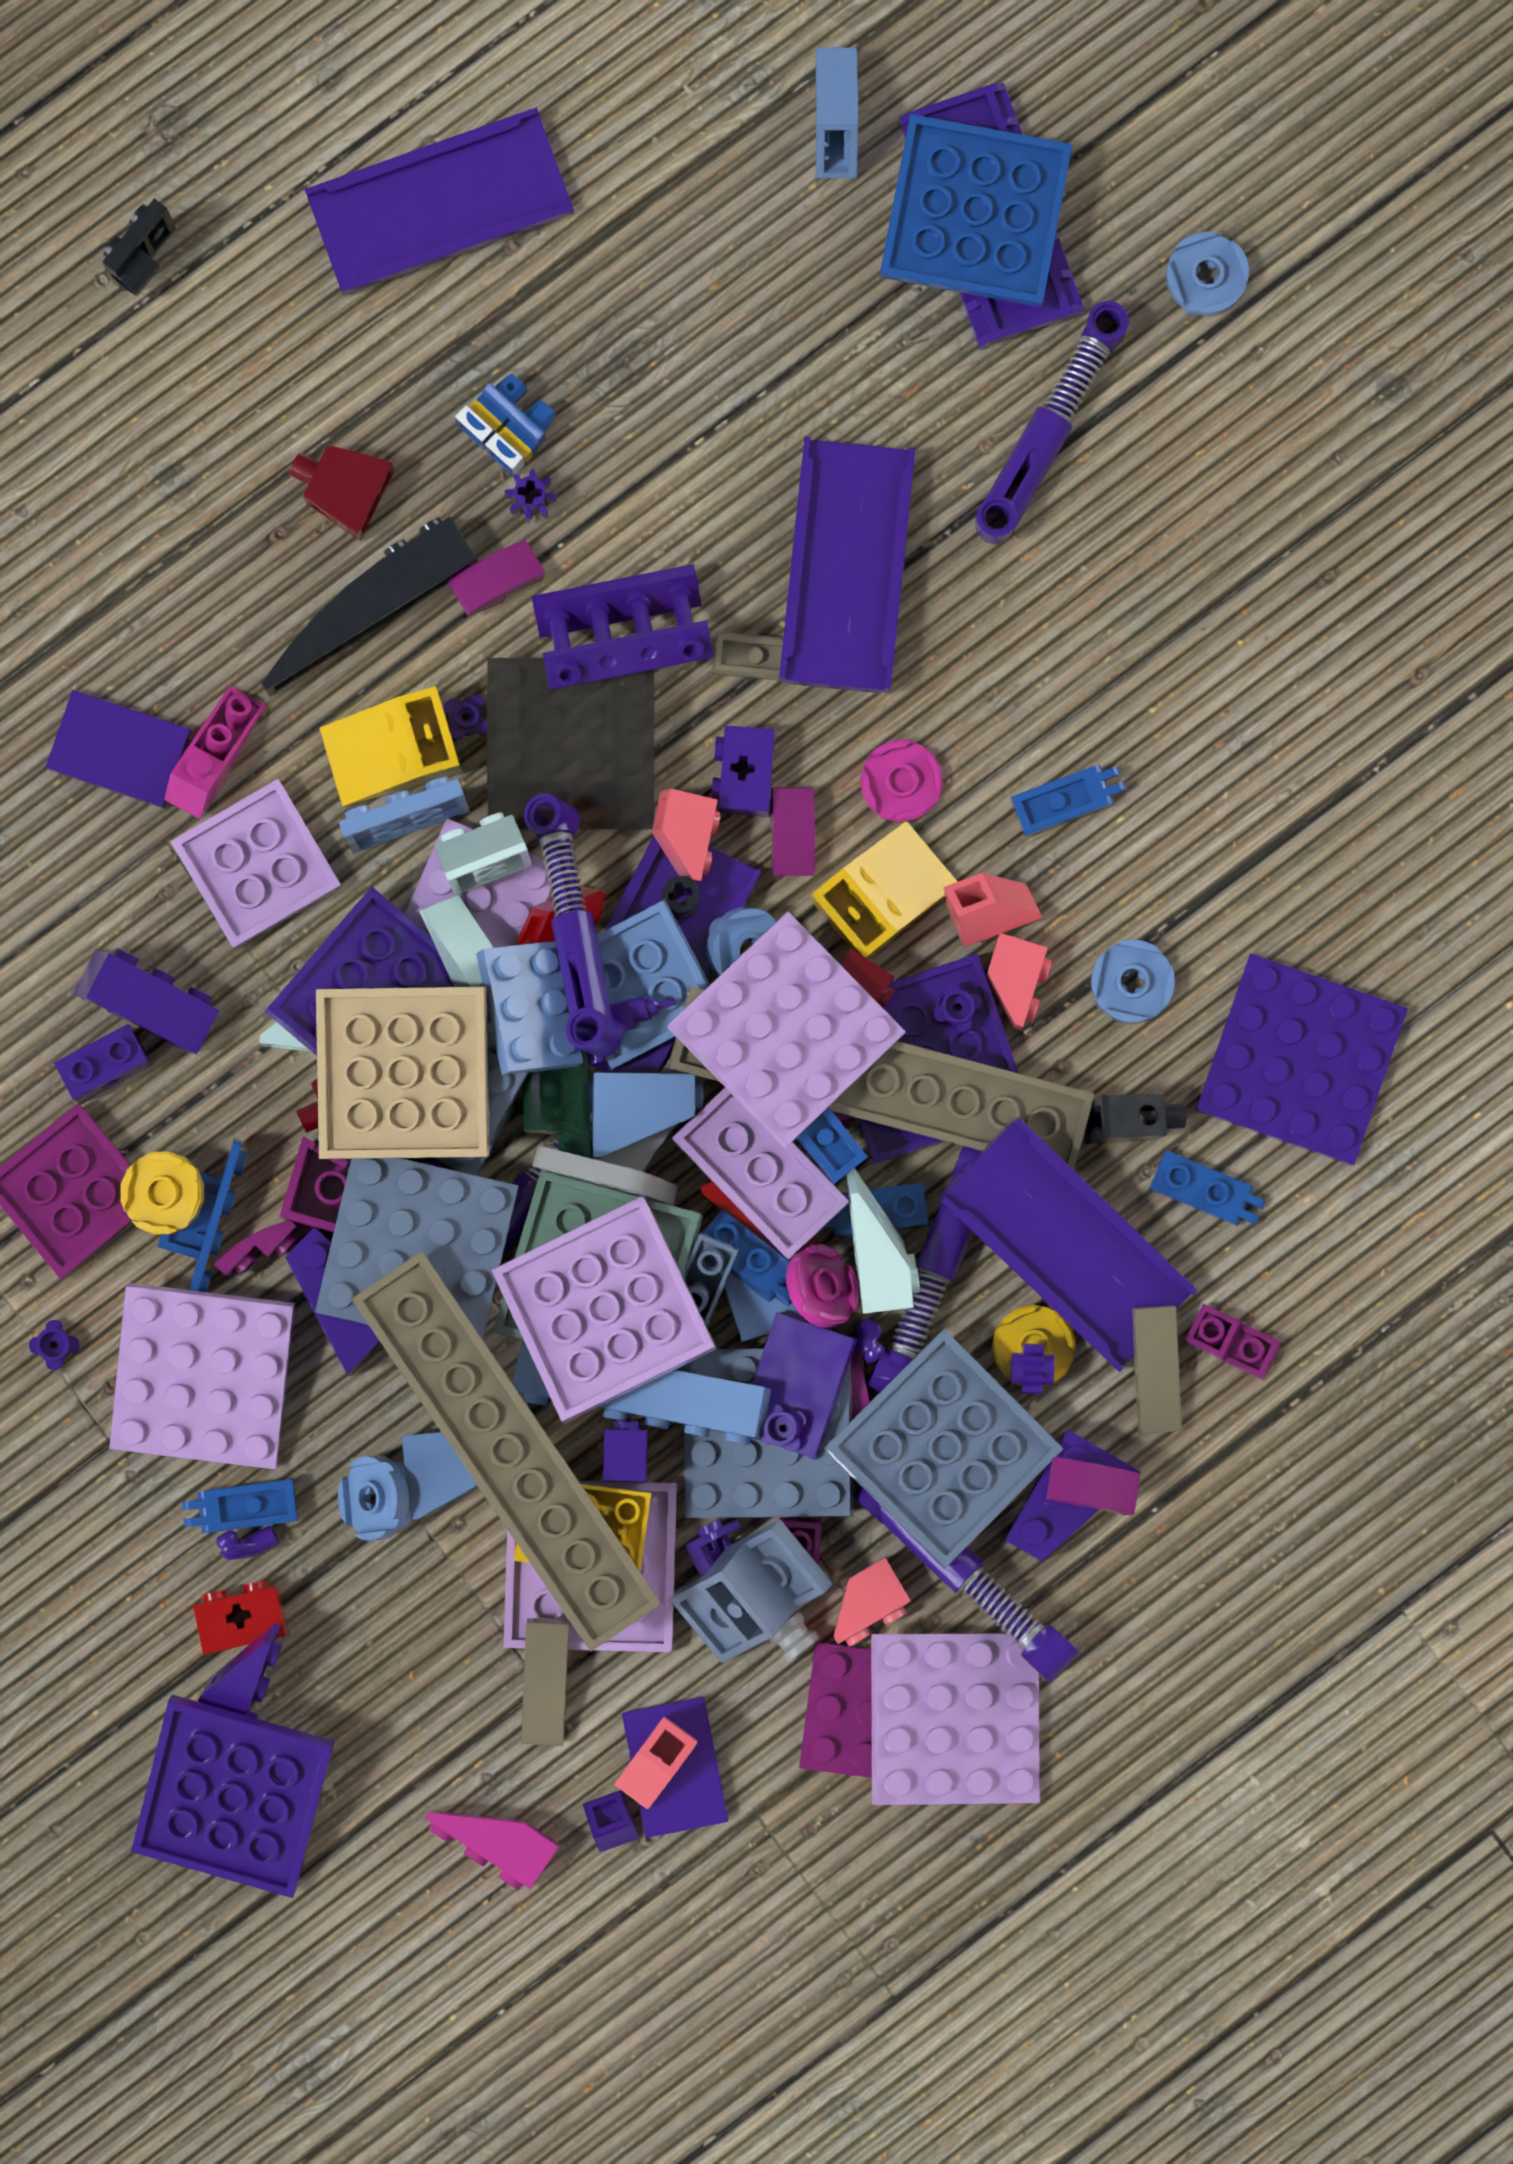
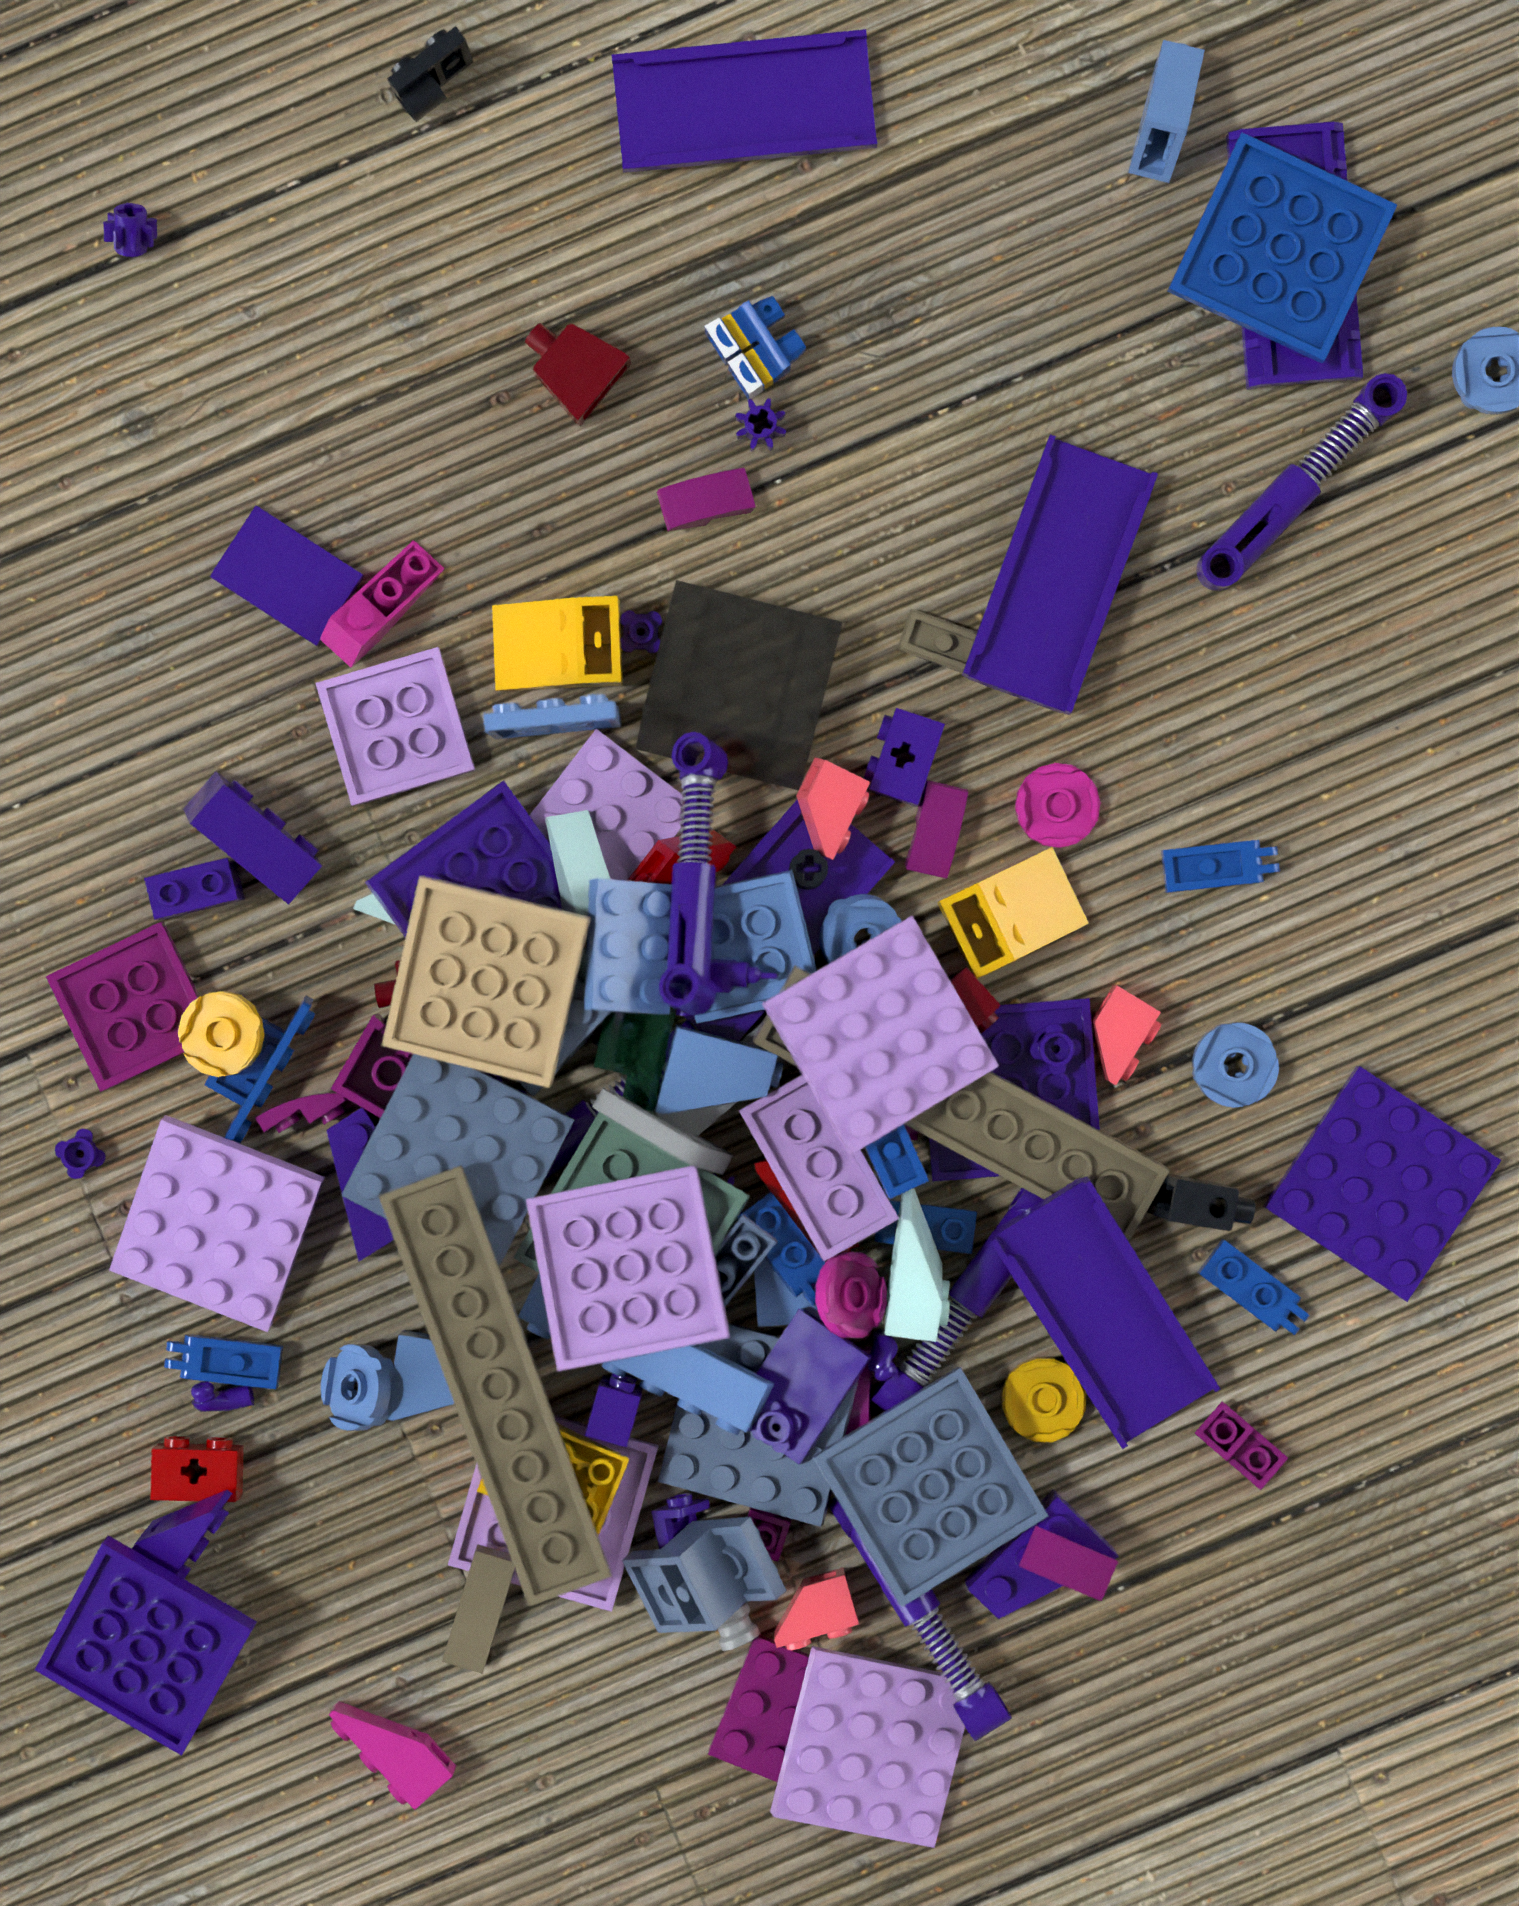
camera: 15 degrees right, 5 degrees up
(376, 597) = (581, 488): black slope -> none
(483, 853) = (621, 776): light aqua slope -> none
(610, 1821) = (510, 1756): dark purple slope -> none
(616, 602) = (818, 554): dark purple fence -> none
(656, 1762) = (570, 1717): coral slope -> none
(695, 1791) = (586, 1721): dark purple tile -> none
(988, 906) = (1112, 955): coral slope -> none
(1032, 1368) = (1037, 1426): dark purple gear -> none
(1156, 1369) = (1159, 1454): dark tan tile -> none

